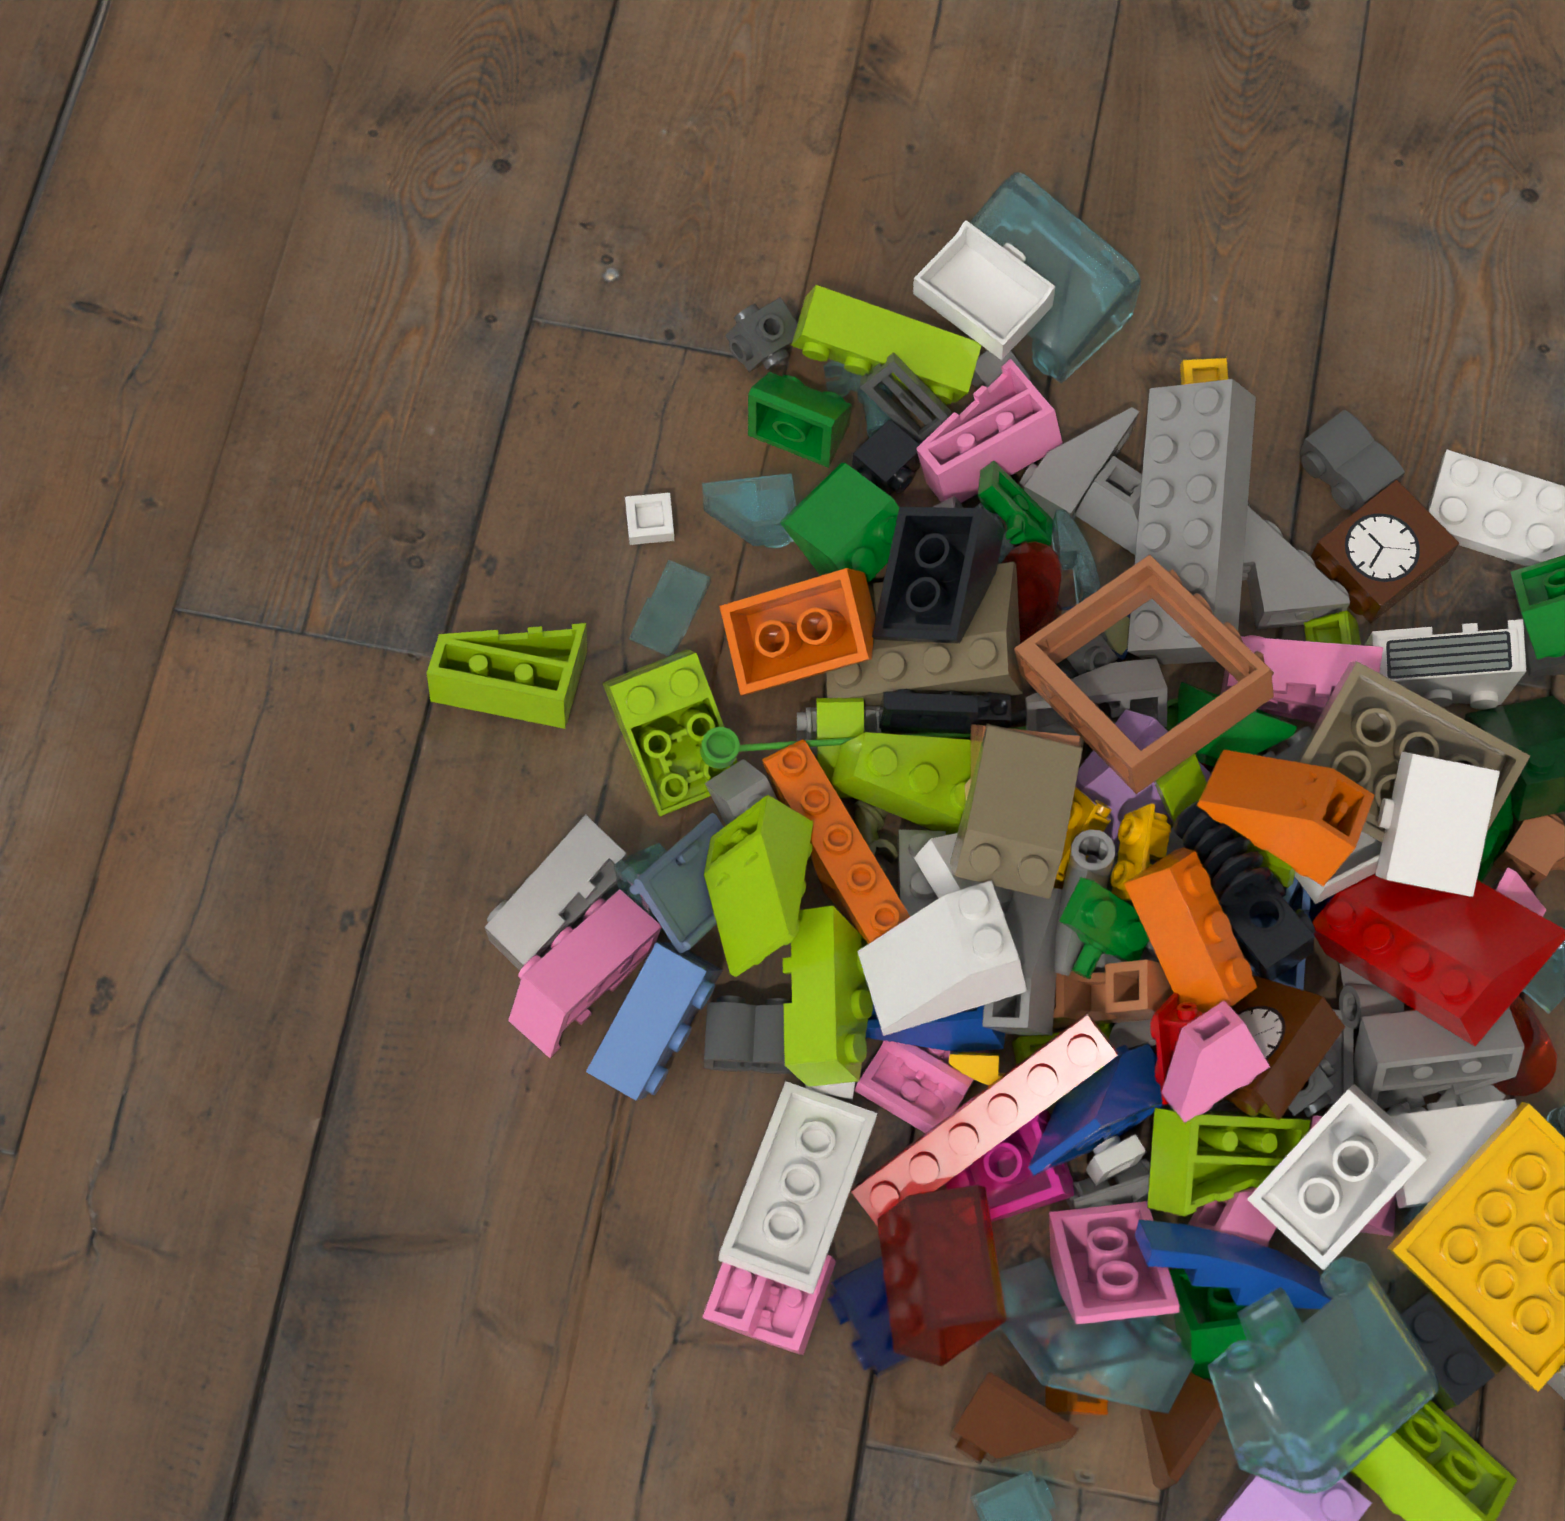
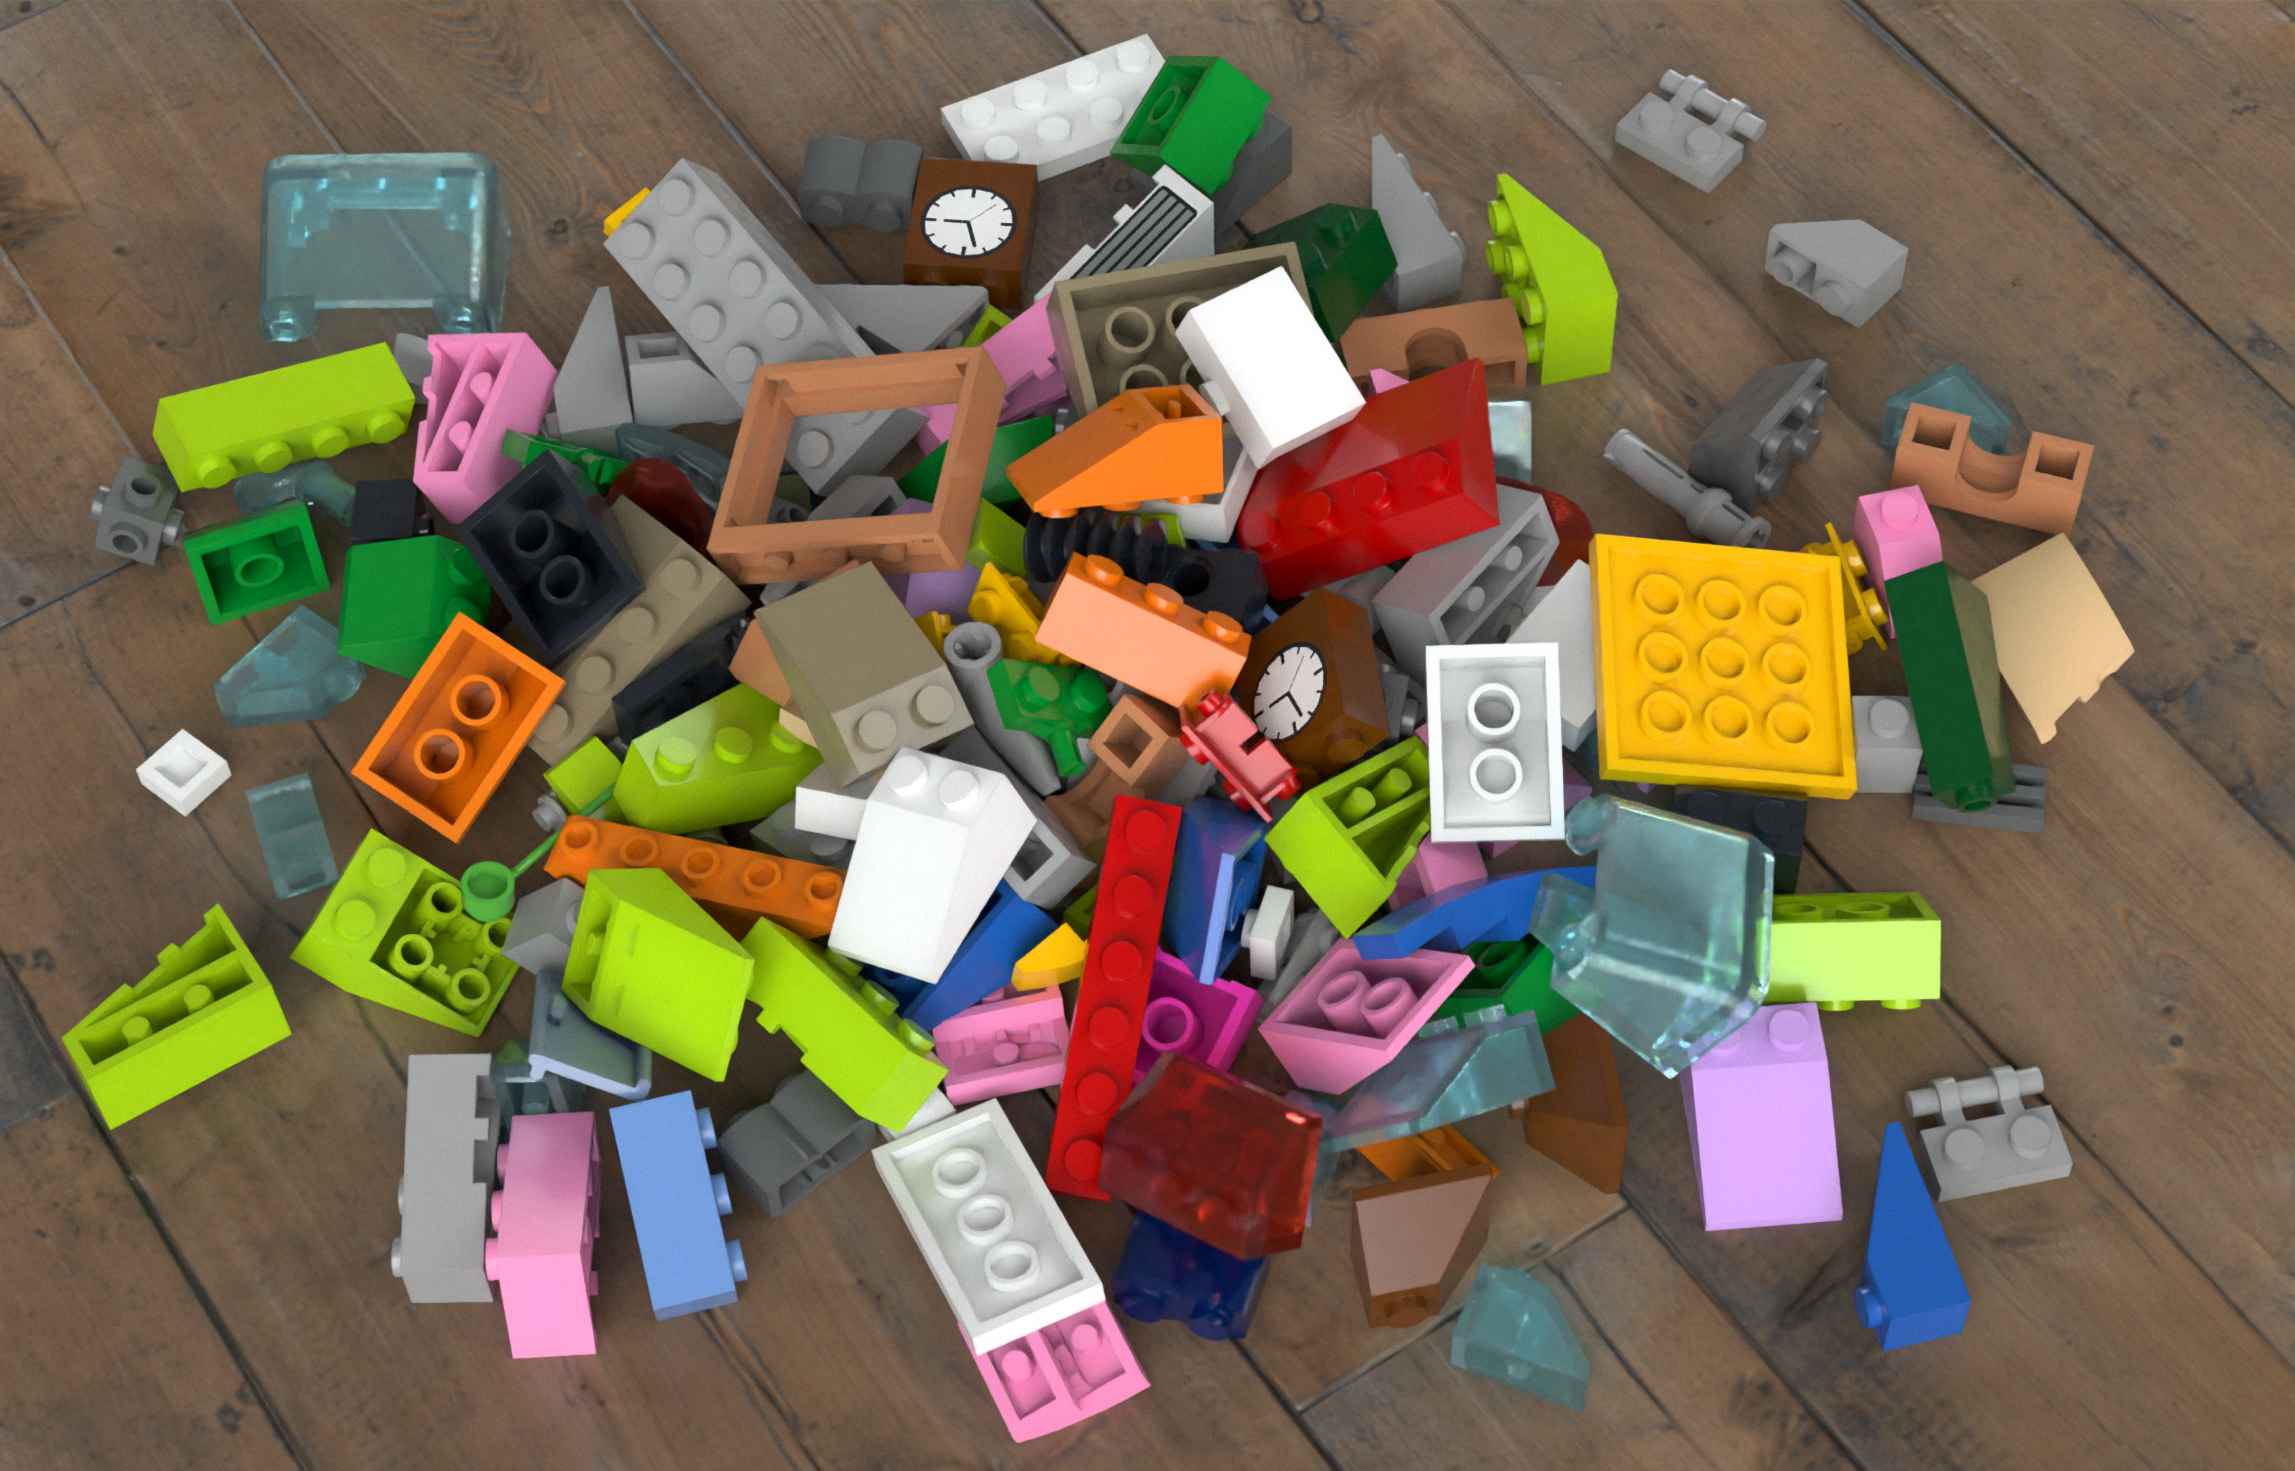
camera: 40 degrees left, 15 degrees down
(882, 373) = (309, 439): dark grey tile -> none
(985, 290) = (341, 286): white container -> none
(1211, 1061) = (1277, 721): bright pink slope -> none

